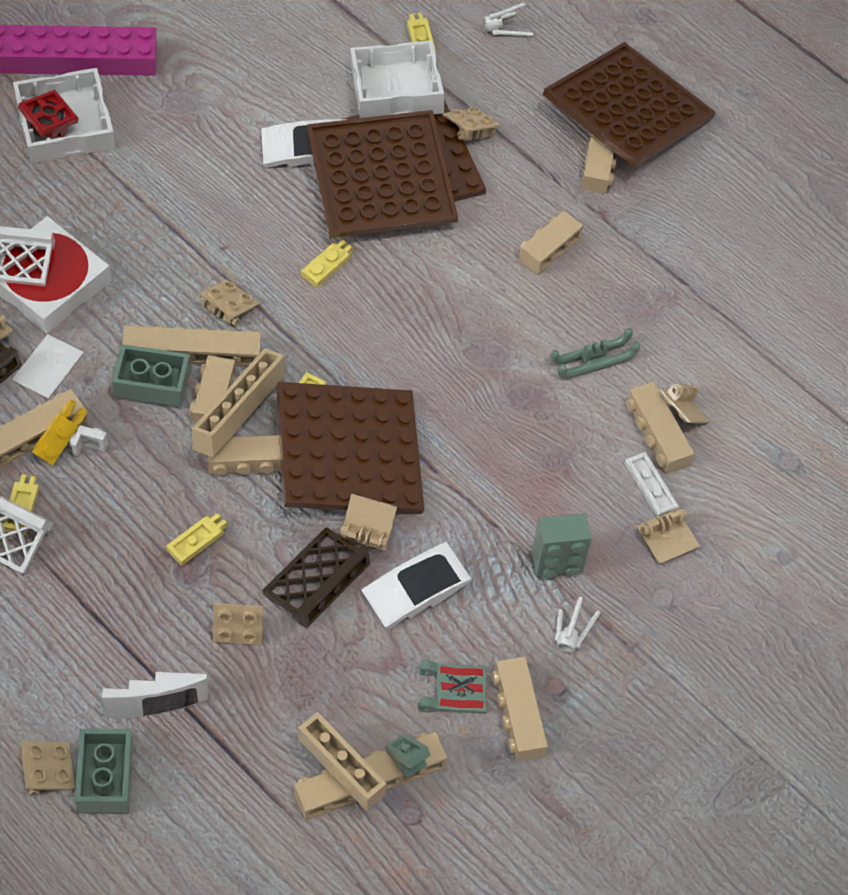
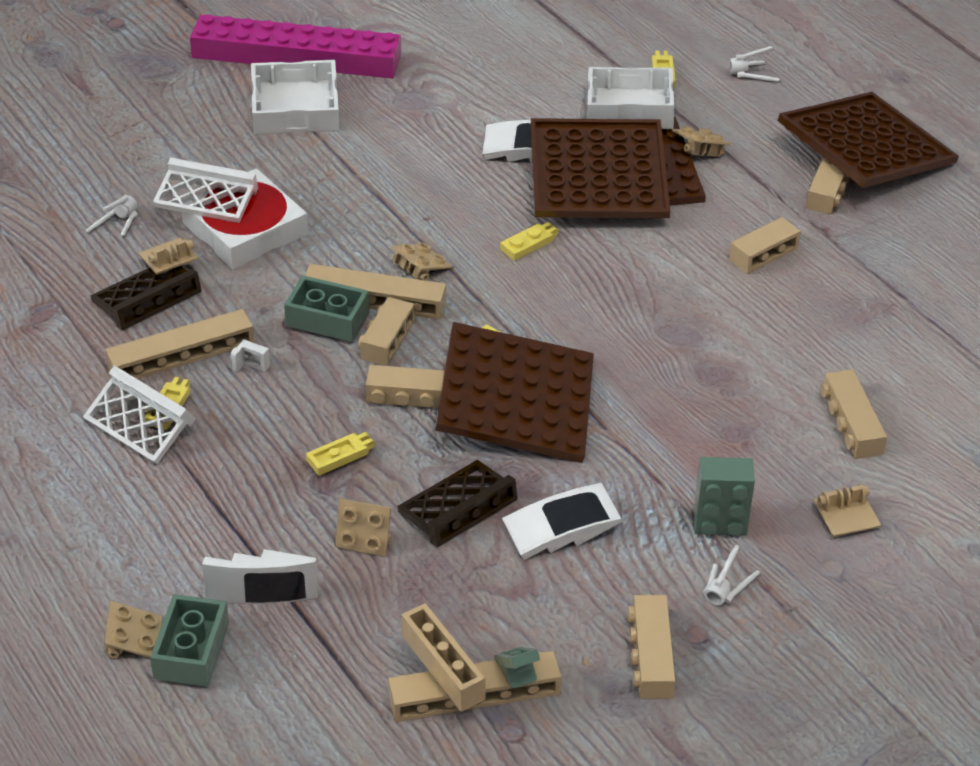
camera: 15 degrees right, 15 degrees down
(47, 366) = (227, 294): white sticker -> none
(48, 115) = (278, 91): red piece -> none
(59, 433) = (220, 345): yellow hinge -> none
(238, 402) = (406, 336): tan brick -> none
(368, 522) = (522, 456): tan hinge -> none
(457, 688) = (585, 620): sand green flag -> none
(595, 355) = (795, 345): sand green piece -> none
(651, 484) = (834, 462): white tile -> none
(681, 398) = (884, 388): tan hinge -> none

